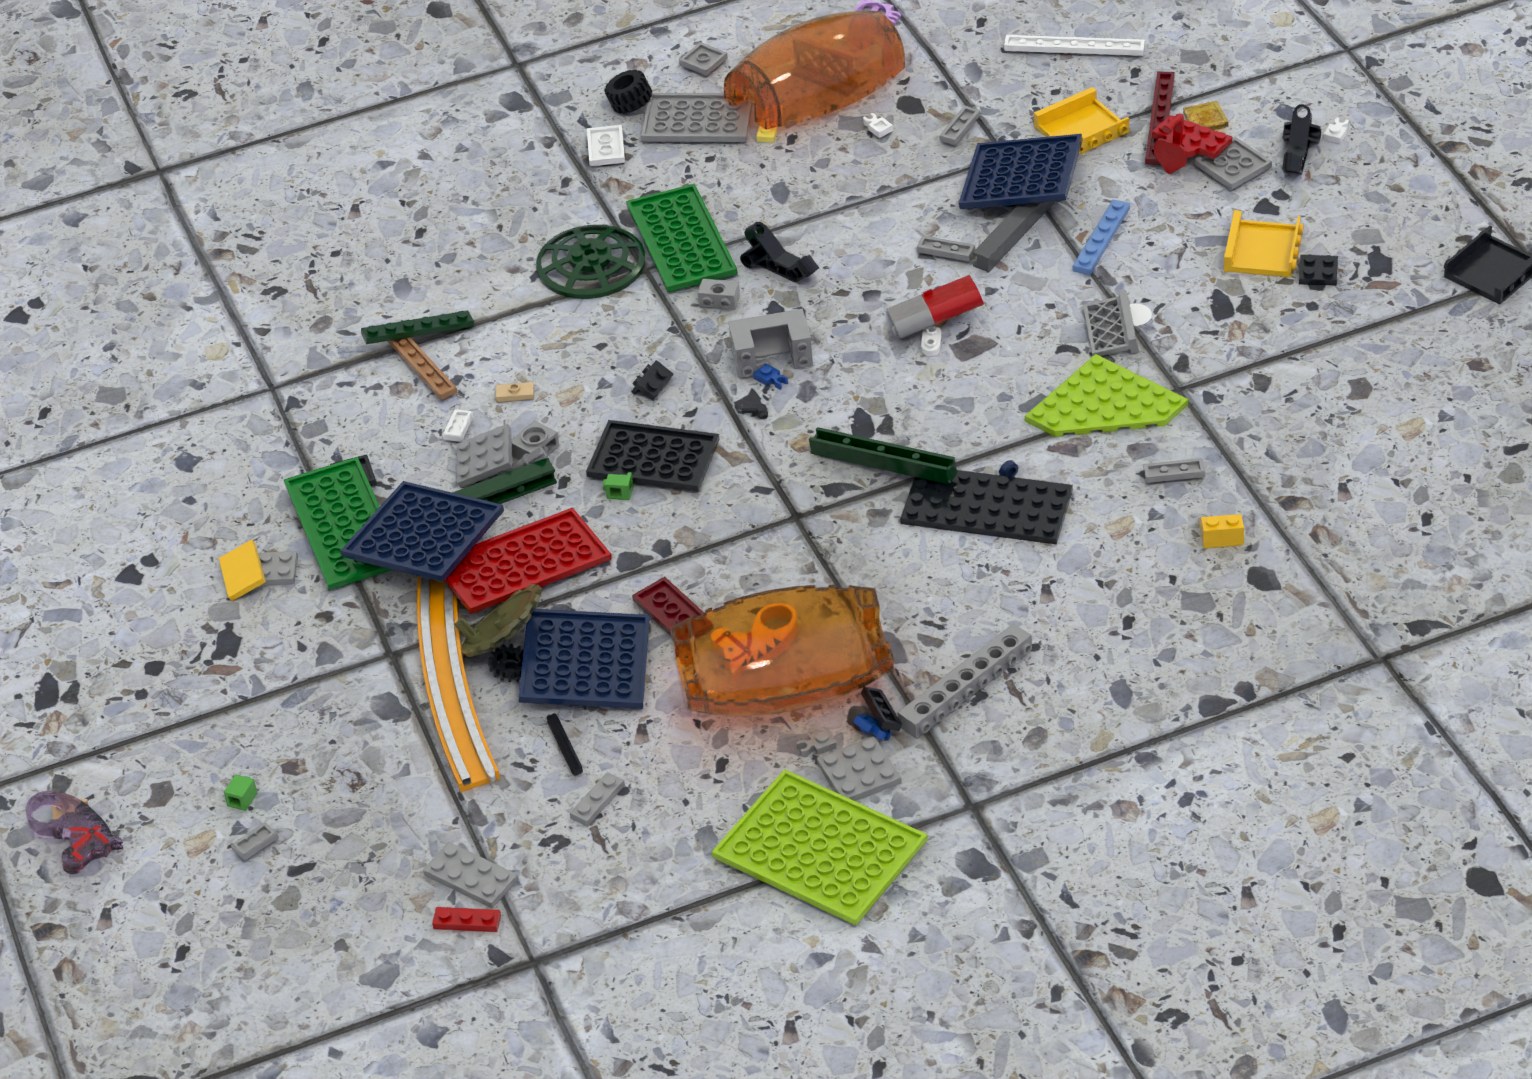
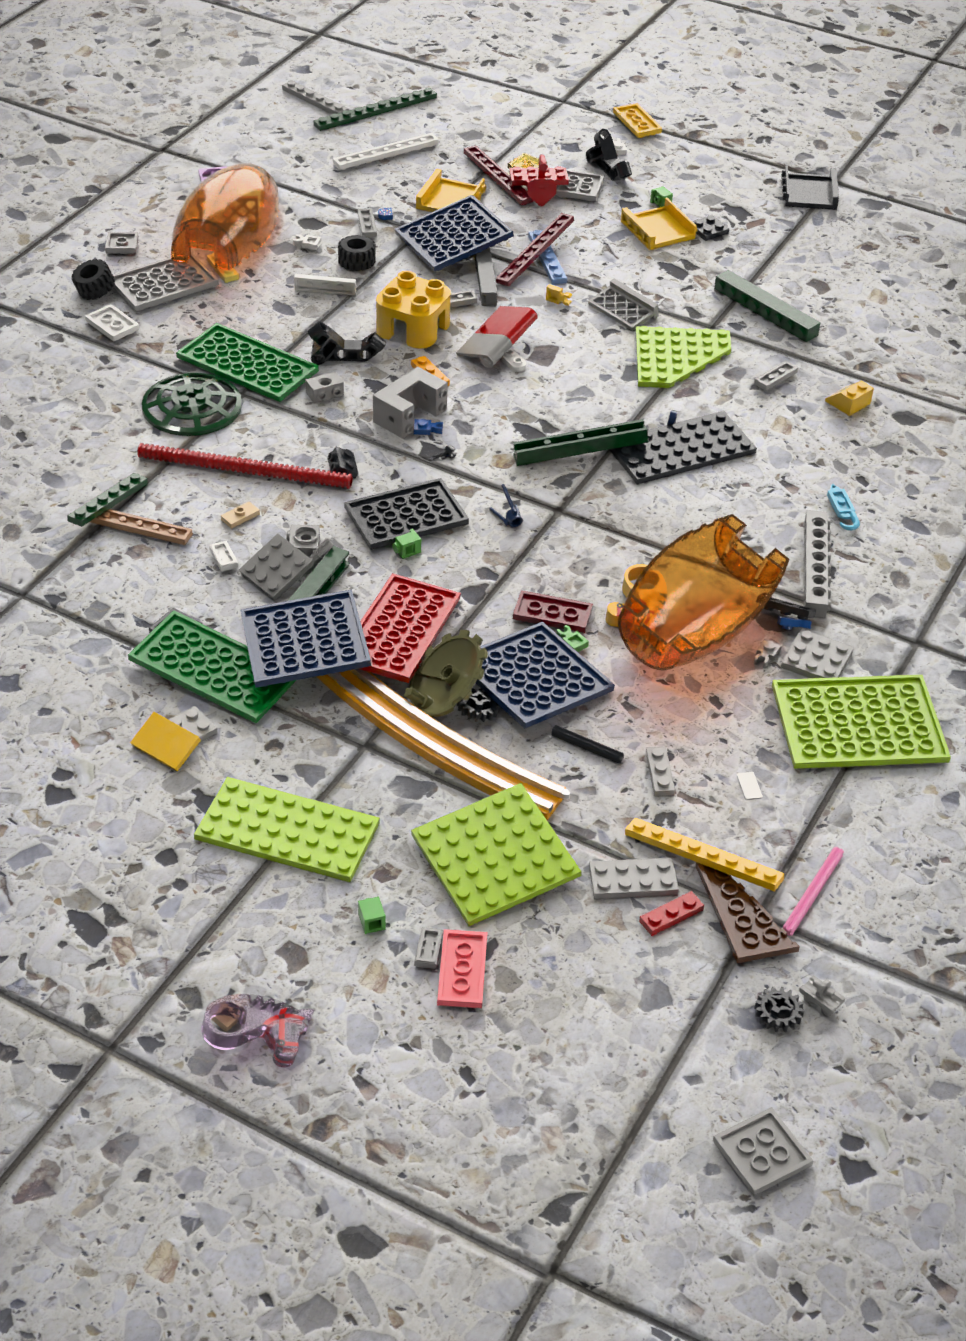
camera: 45 degrees left, 0 degrees up
(259, 691) = (287, 829): none -> lime plate
(260, 871) = (462, 969): none -> coral plate
(382, 794) = (495, 854): none -> lime plate
(464, 1038) = (779, 1009): none -> black gear
(496, 1048) = (822, 994): none -> light grey hips
(513, 957) = (743, 919): none -> reddish brown wing
(539, 885) = (705, 854): none -> yellow plate
(567, 346) = (244, 465): none -> red piece
(599, 965) = (813, 891): none -> bright pink axle
(658, 645) = (574, 639): none -> bright green plate
(659, 851) = (749, 785): none -> white sticker
(741, 502) = (513, 515): none -> dark blue plant
(837, 320) = (424, 363): none -> light orange plate
(839, 181) = (325, 284): none -> white plate
(874, 238) = (417, 304): none -> yellow piece
(906, 157) = (356, 253): none -> black tyre
(993, 121) = (385, 214): none -> tile
(1054, 285) = (556, 295): none -> yellow plate
(1065, 638) = (843, 507): none -> medium azure plate
(1086, 223) = (534, 249): none -> plate
(1261, 388) = (767, 305): none -> dark green brick
(1305, 209) = (659, 194): none -> bright green brick
(1397, 104) = (637, 120): none -> yellow plate

